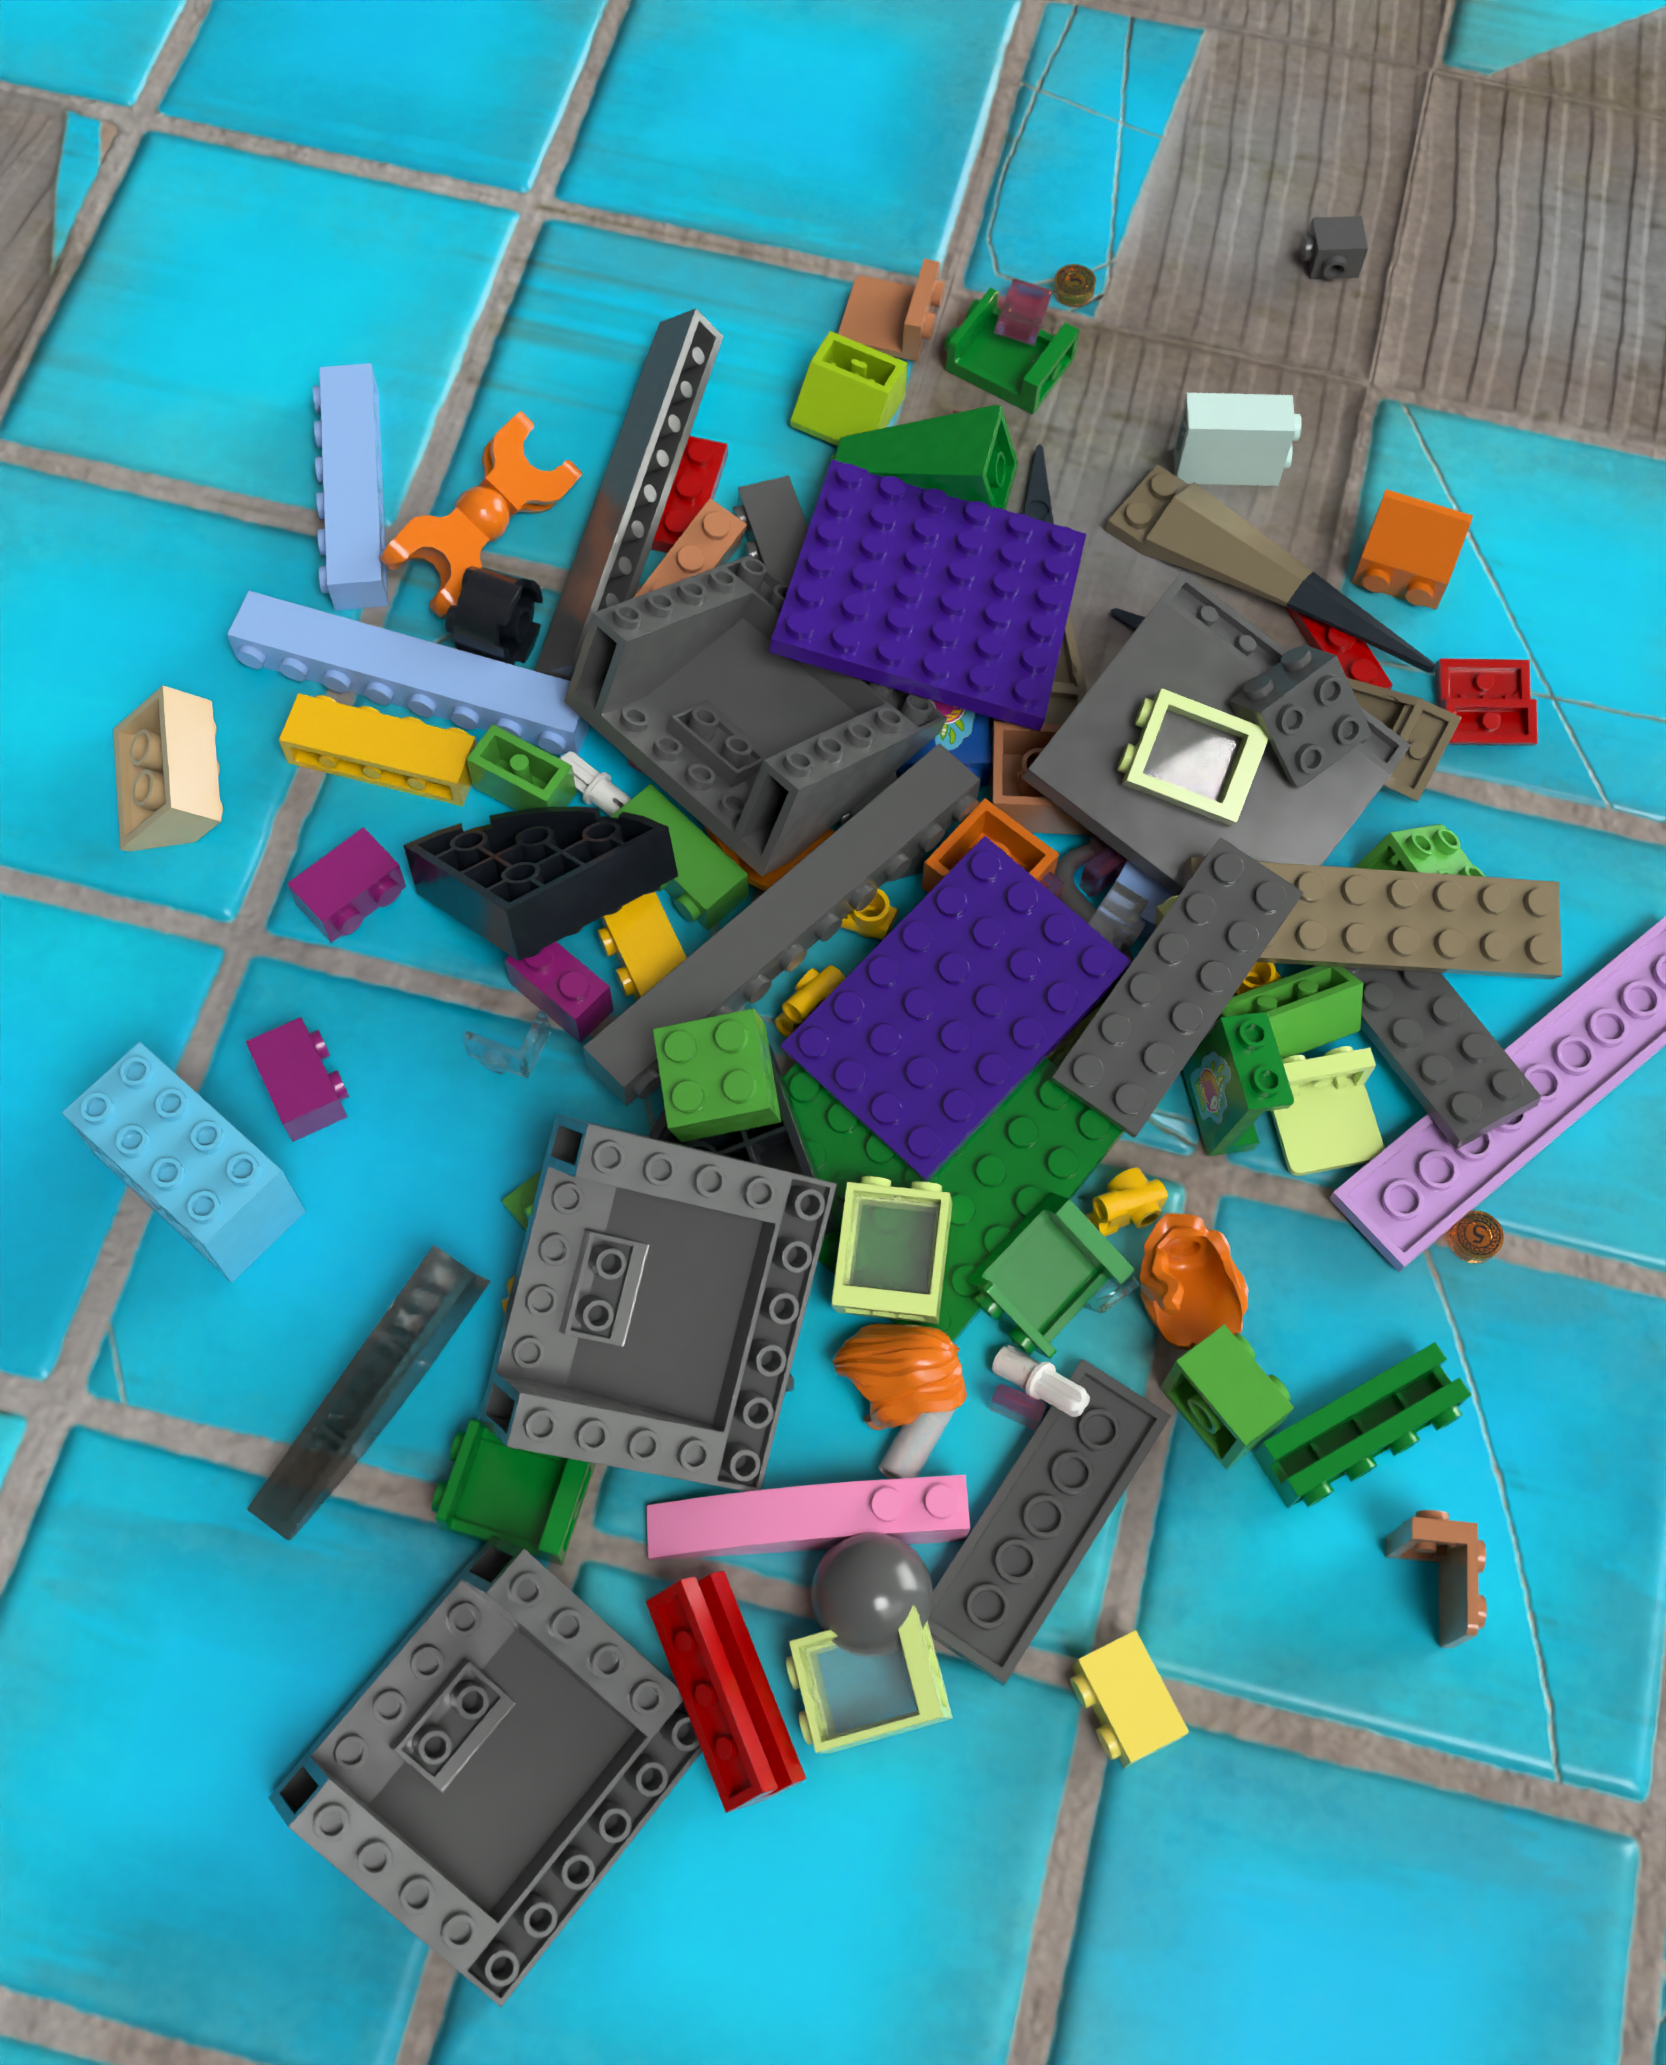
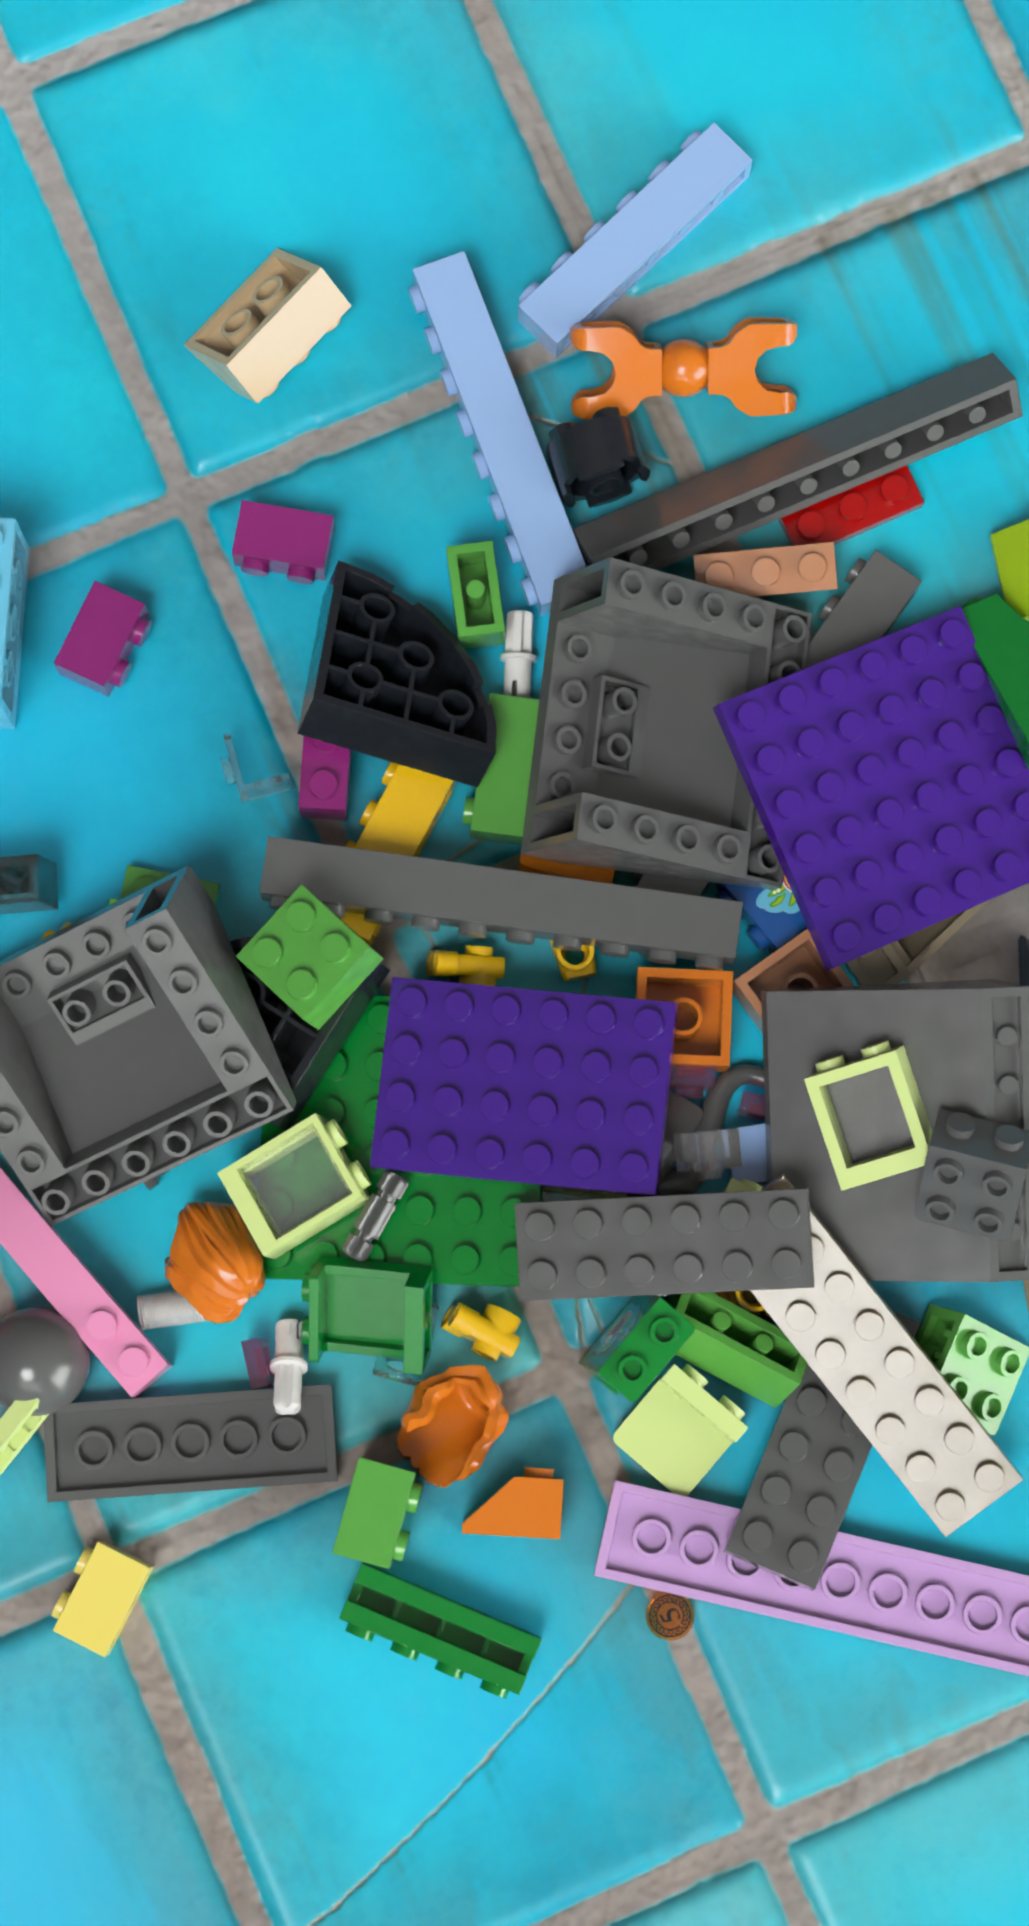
camera: 50 degrees right, 15 degrees up
(378, 748) = (416, 464): yellow brick -> none
(969, 1206) = (374, 1216): none -> dark grey axle
(1307, 1272) = (521, 1508): none -> orange slope
(1460, 1559) = (381, 1736): bracket -> none

